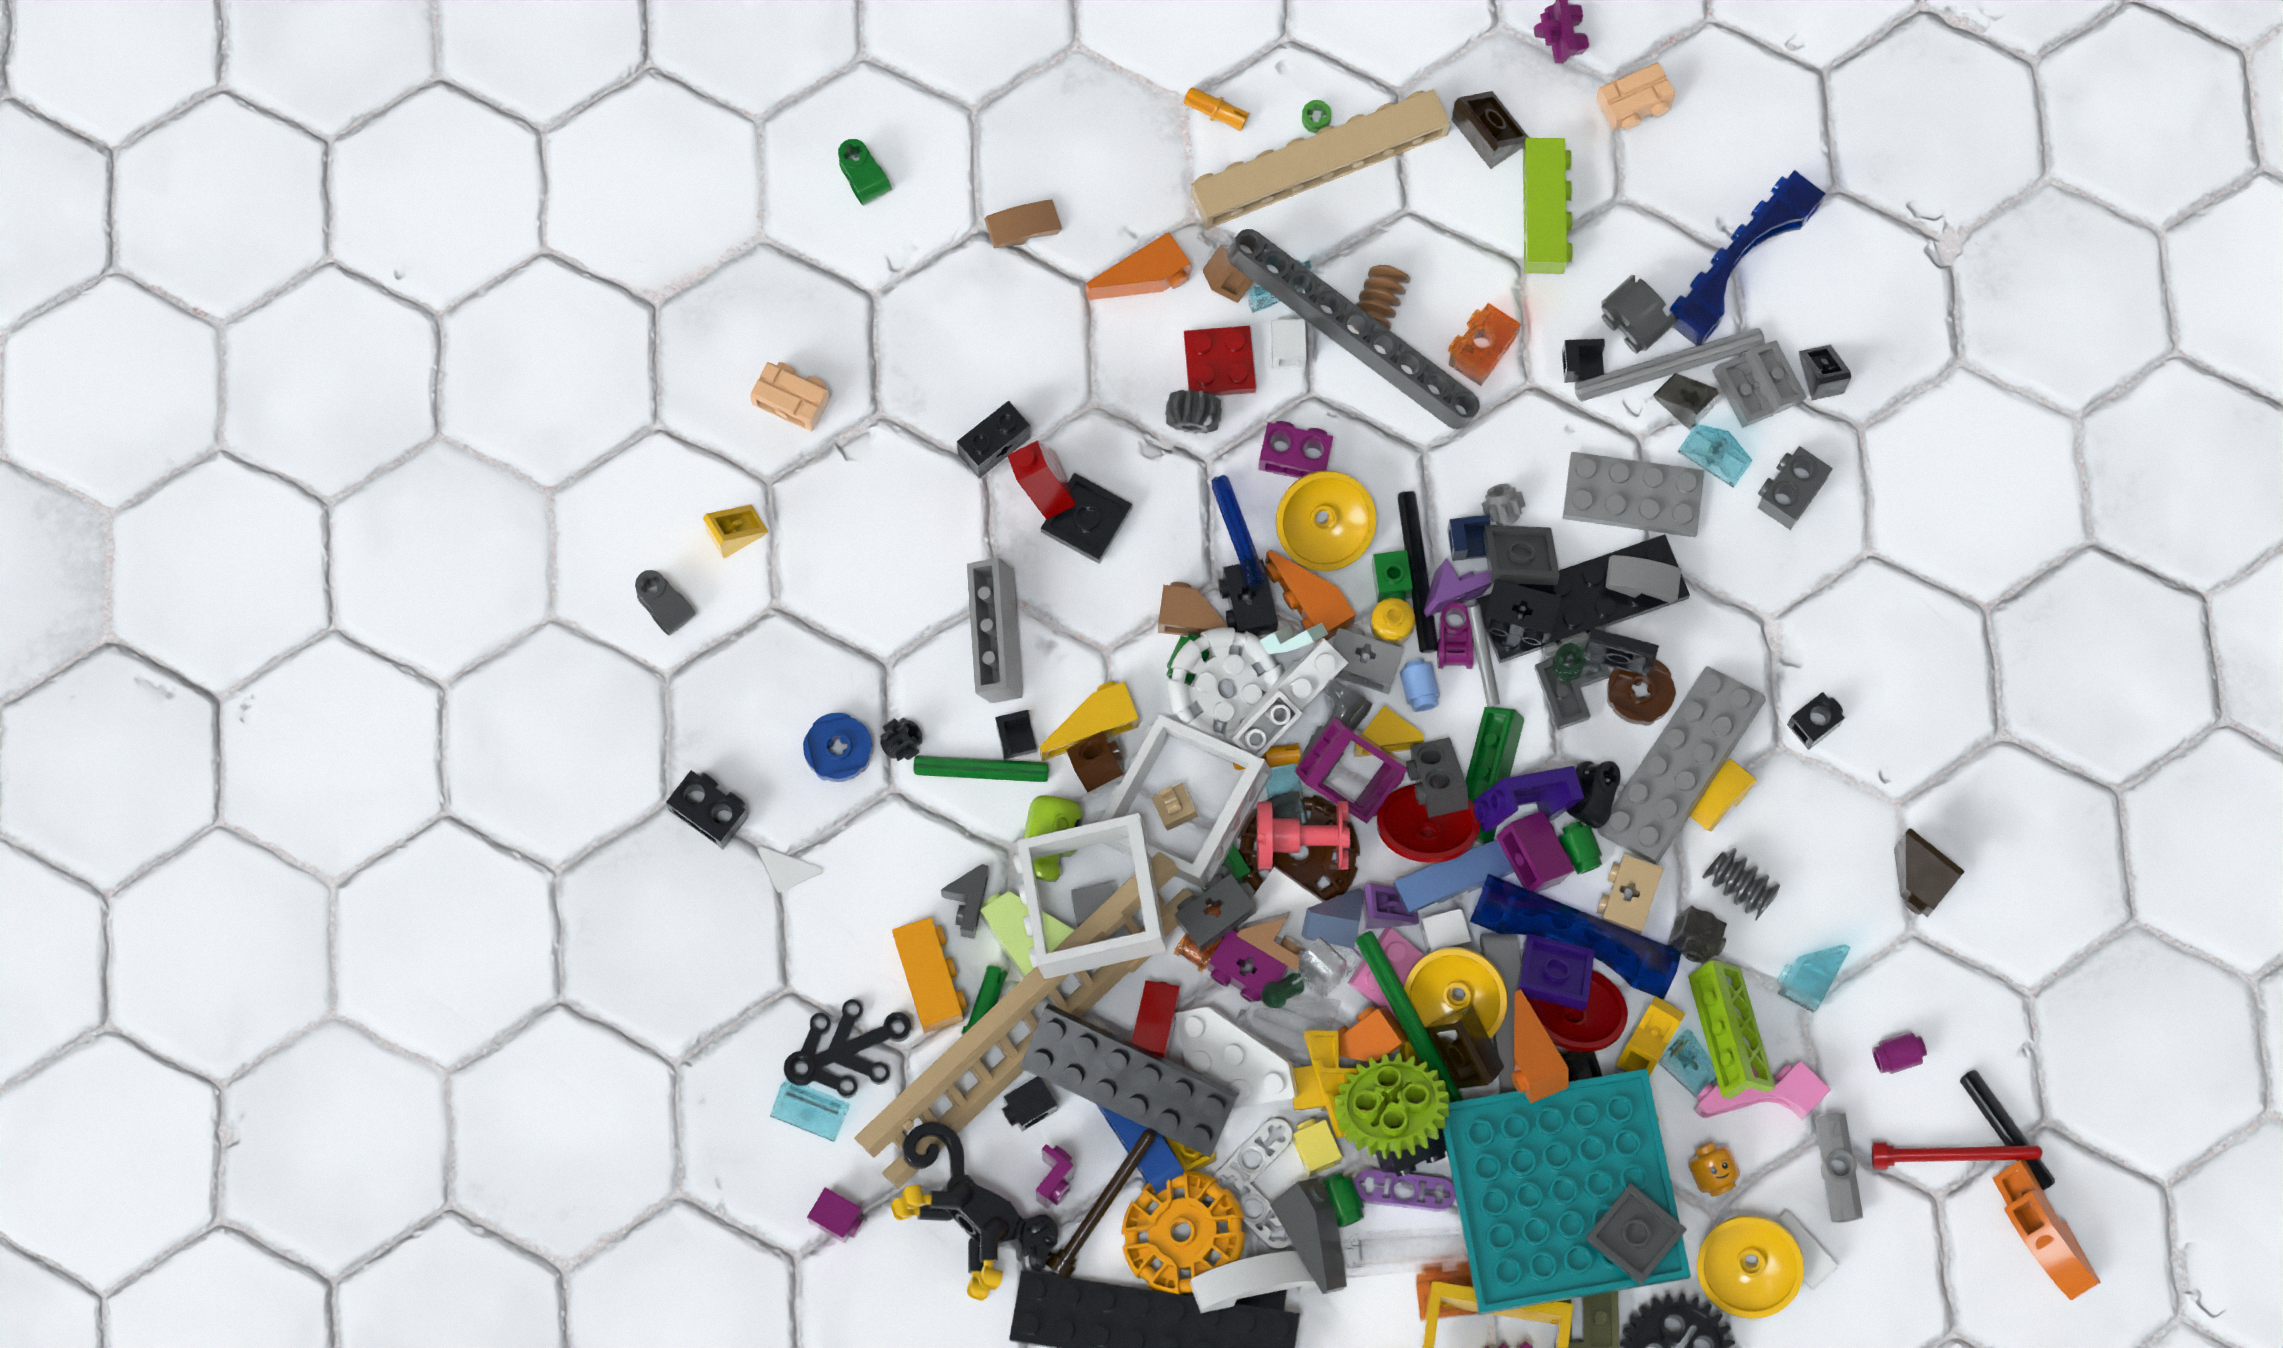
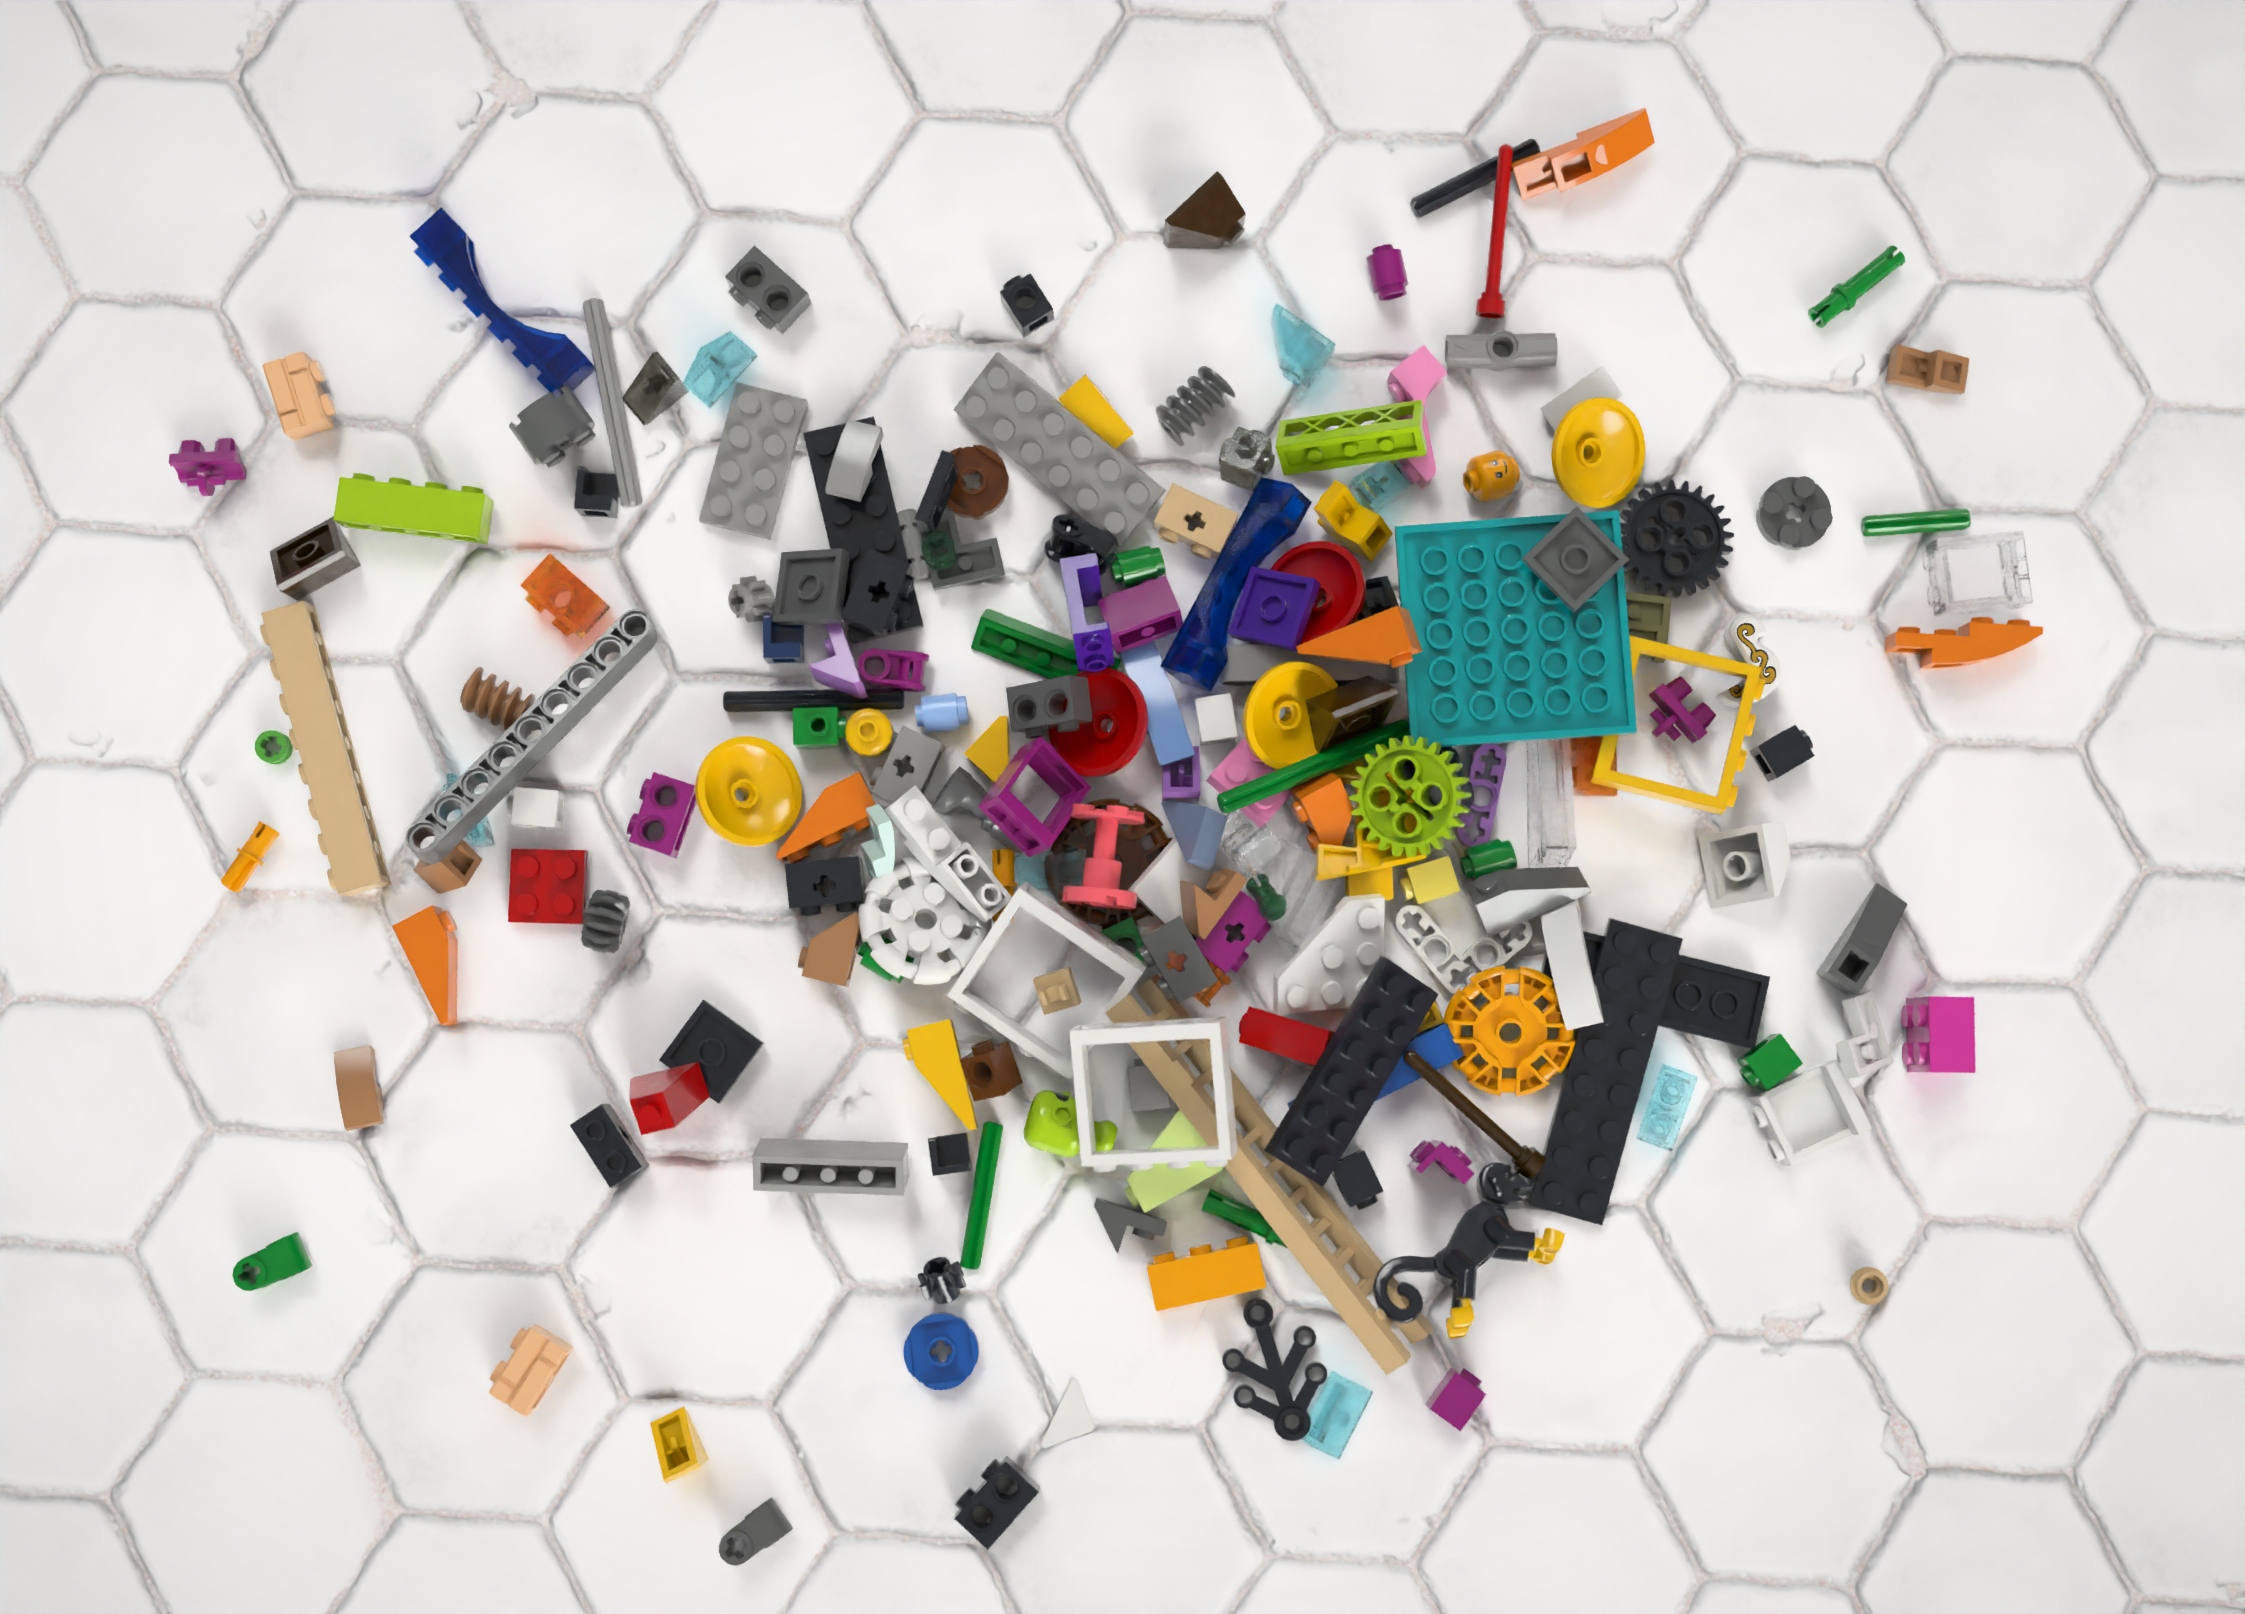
camera: 85 degrees left, 10 degrees up
(1238, 530) = (748, 887): clear blue axle -> none
(1483, 655) = (917, 641): light grey bar -> none
(1759, 383) = (645, 311): light grey slope -> none
(1824, 372) = (640, 240): black slope -> none

